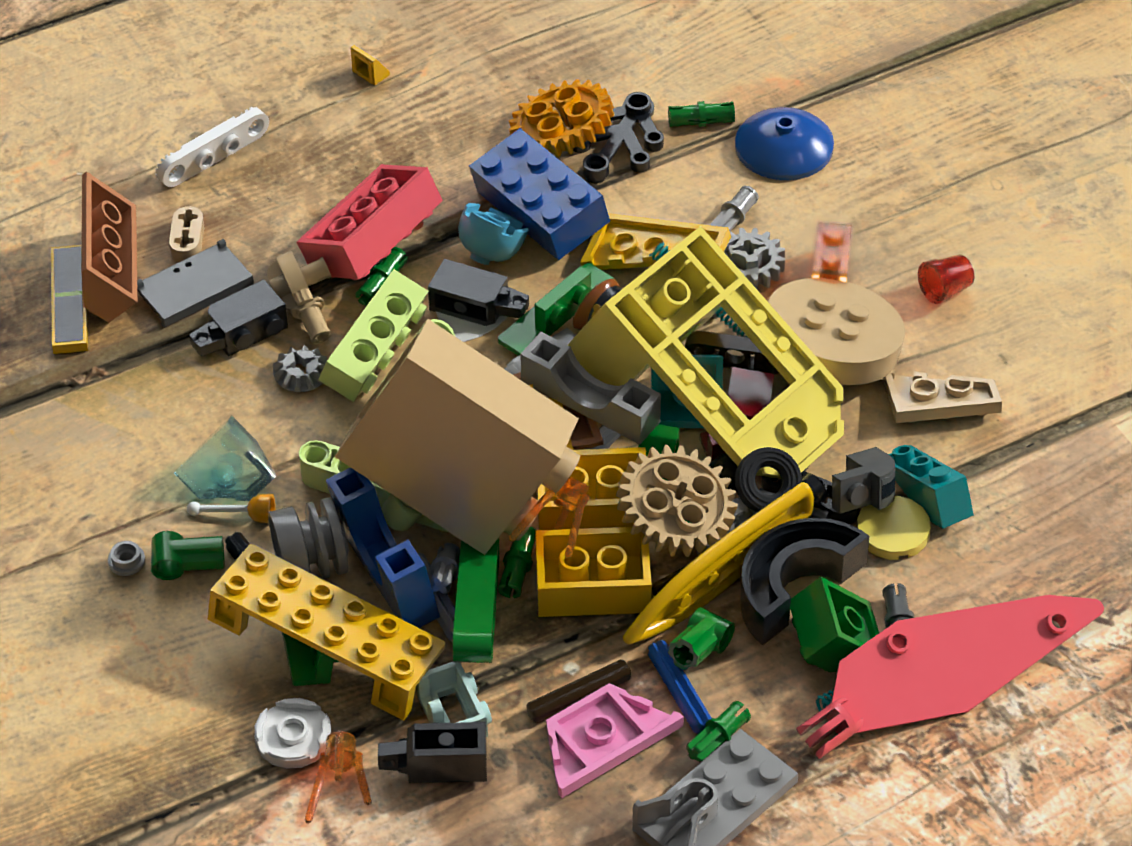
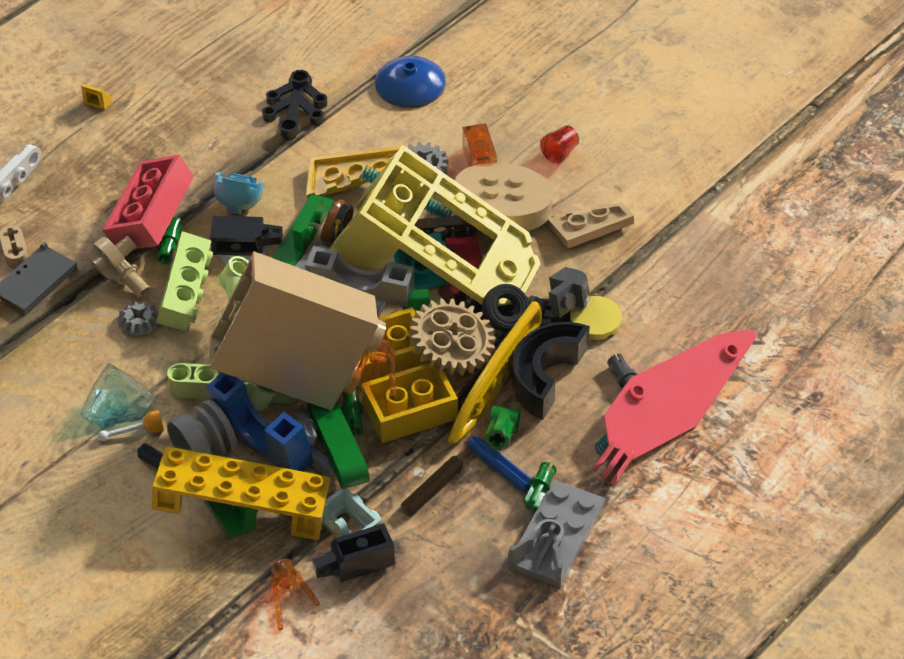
camera: 20 degrees left, 0 degrees up
(126, 558) = (69, 478): light grey plate -> none
(174, 554) = (105, 471): green piece -> none
(241, 320) = (82, 295): black hinge -> none
(292, 733) = (243, 571): white tile -> none
(540, 193) = (261, 153): blue brick -> none
(581, 108) = (252, 100): light orange gear -> none
(602, 734) = (461, 510): bright pink wing -> none
(701, 114) = (346, 75): green pin -> none
(734, 211) = (397, 134): light grey axle -> none
(831, 623) = (585, 393): green slope -> none
(932, 485) = (613, 282): teal slope -> none

